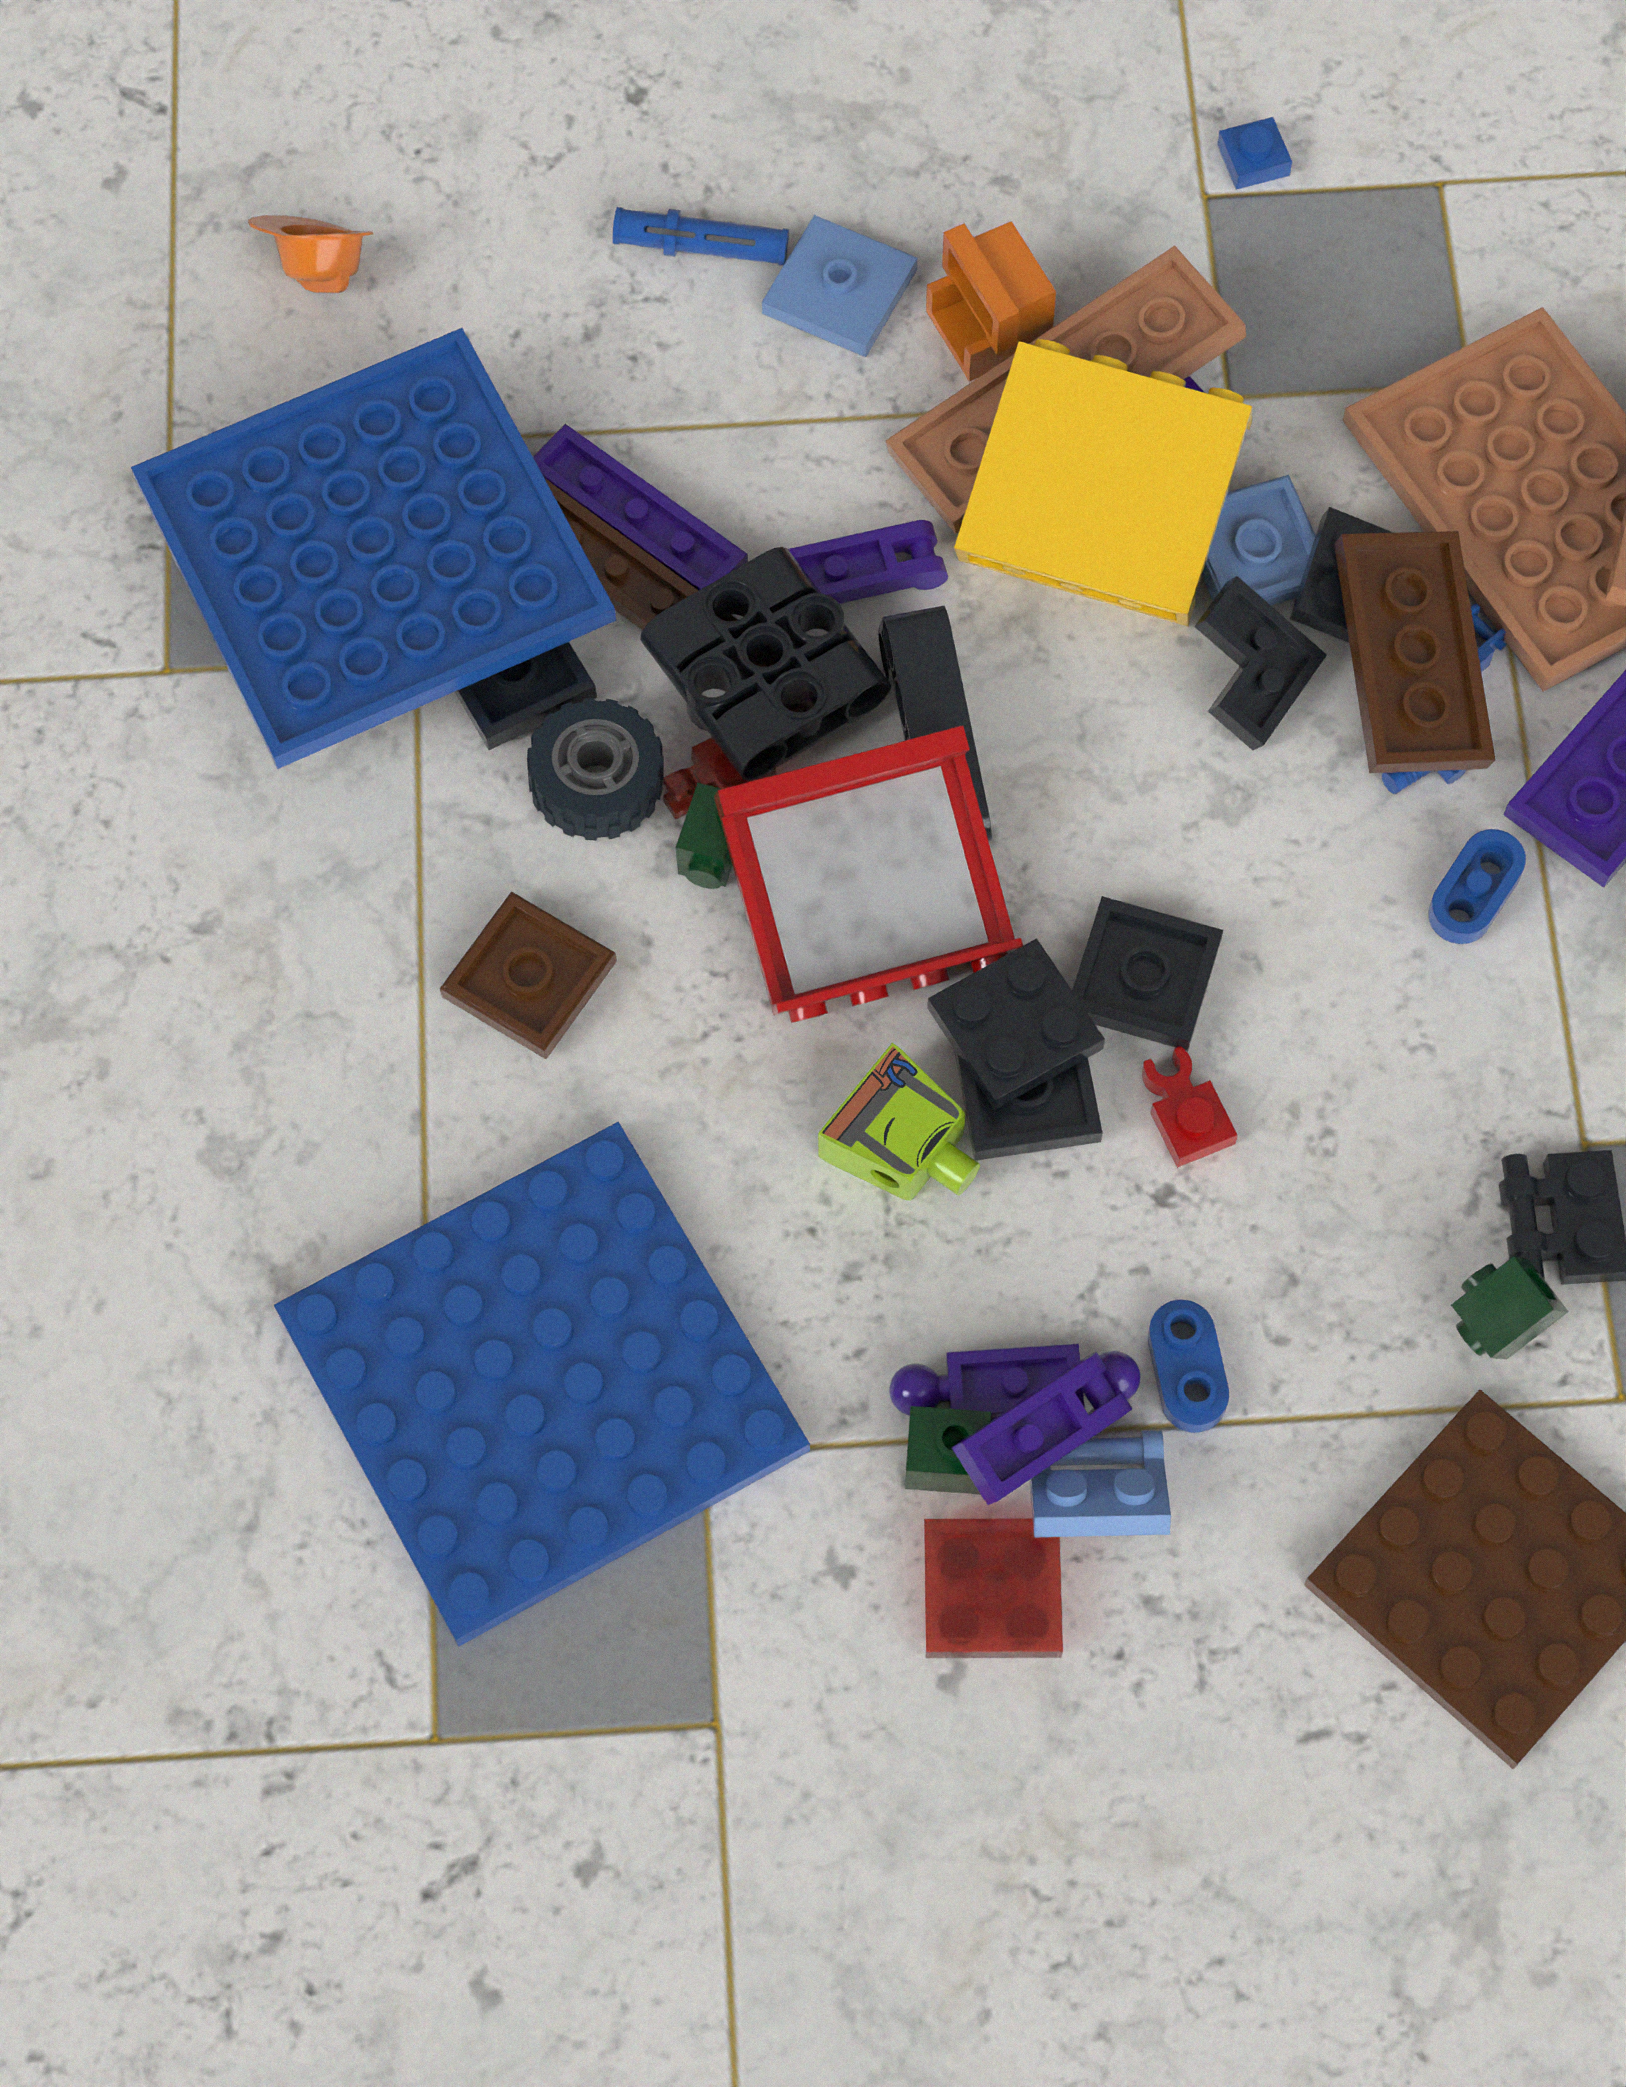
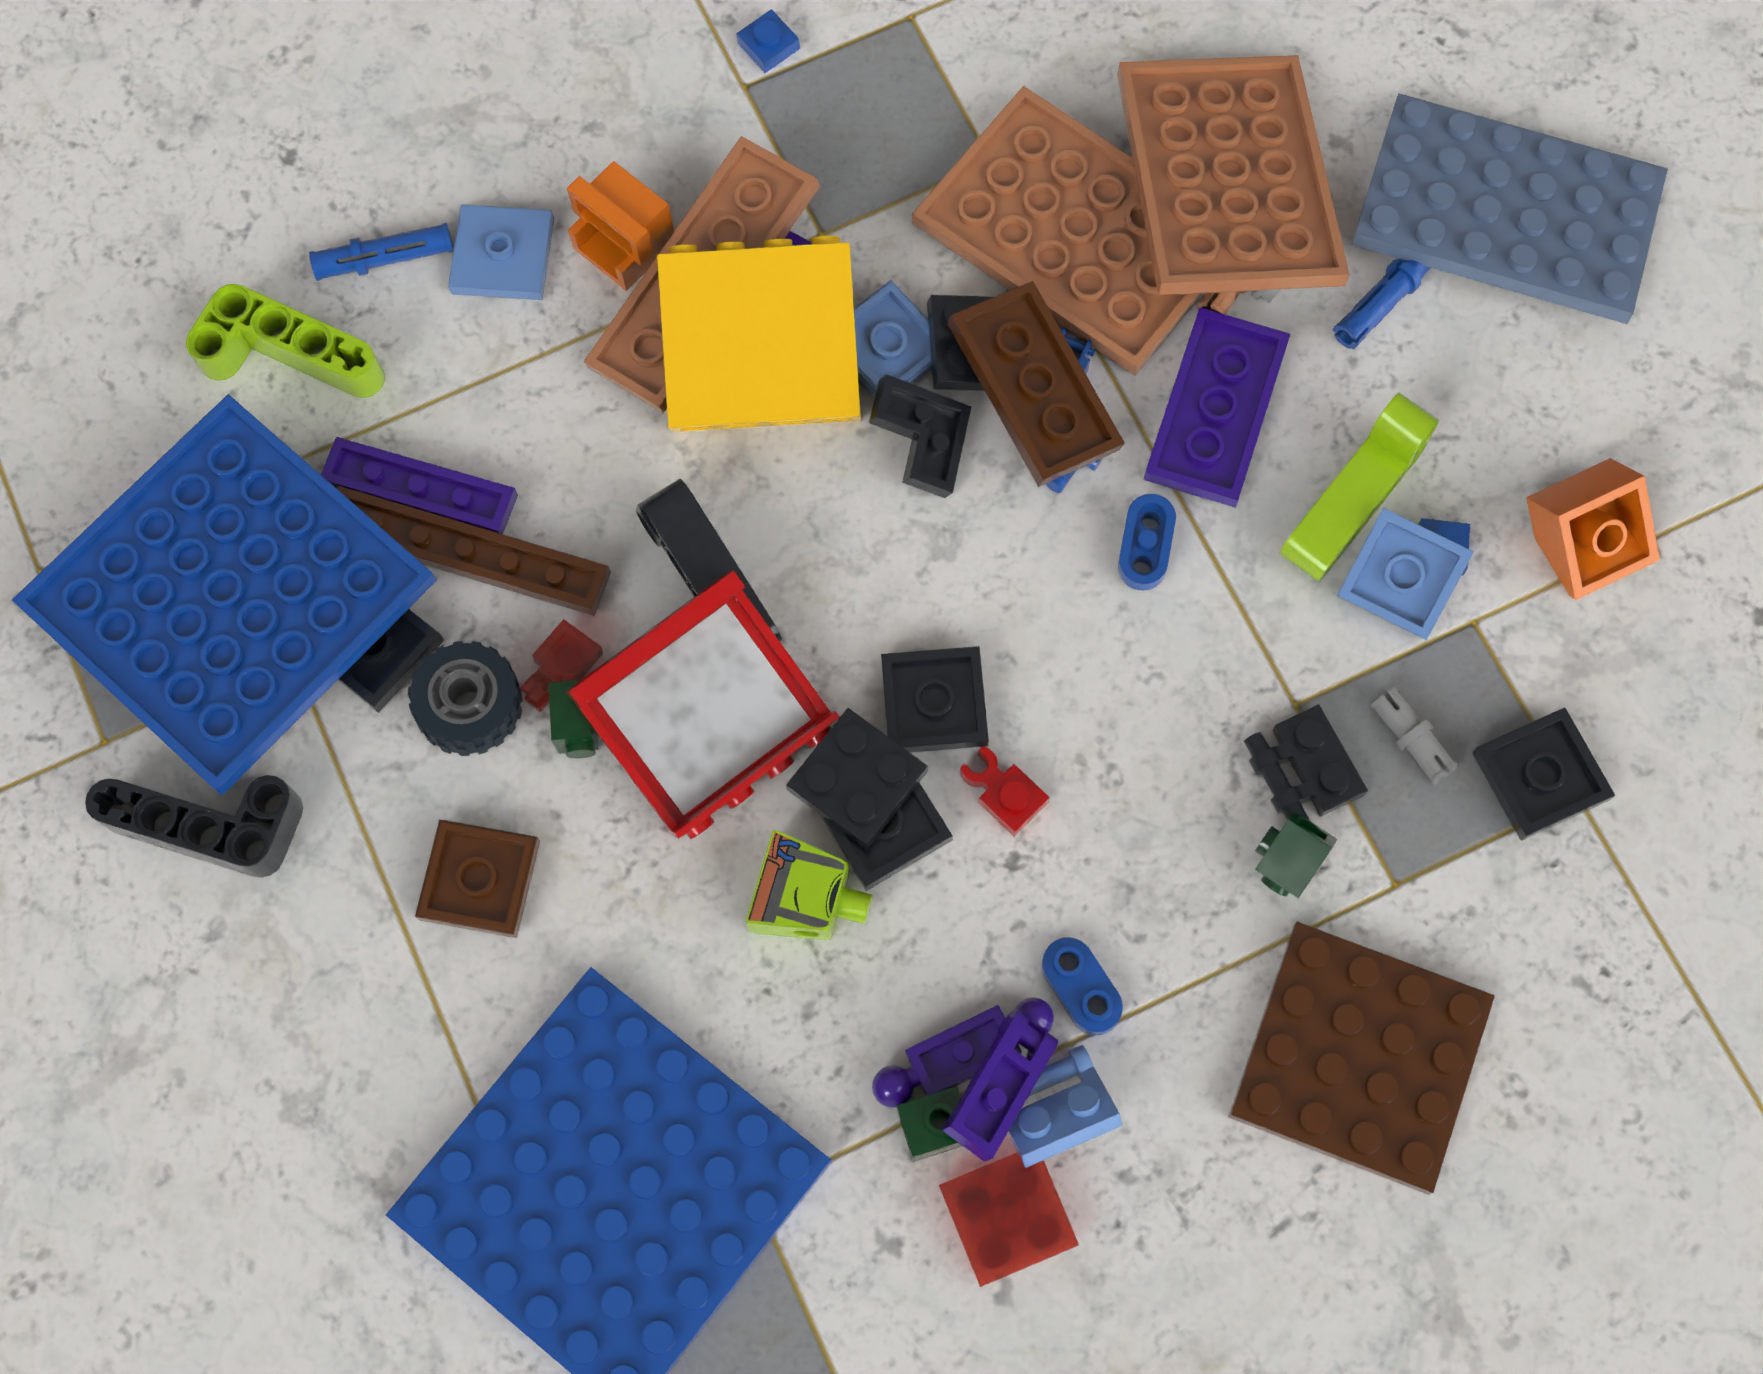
camera: 20 degrees left, 5 degrees up
(232, 787) = (191, 820): none -> black beam
(314, 251) = (87, 368): orange piece -> none
(553, 307) = (291, 347): none -> lime beam
(752, 715) = (515, 579): black connector -> none
(867, 564) = (600, 467): dark purple plate -> none

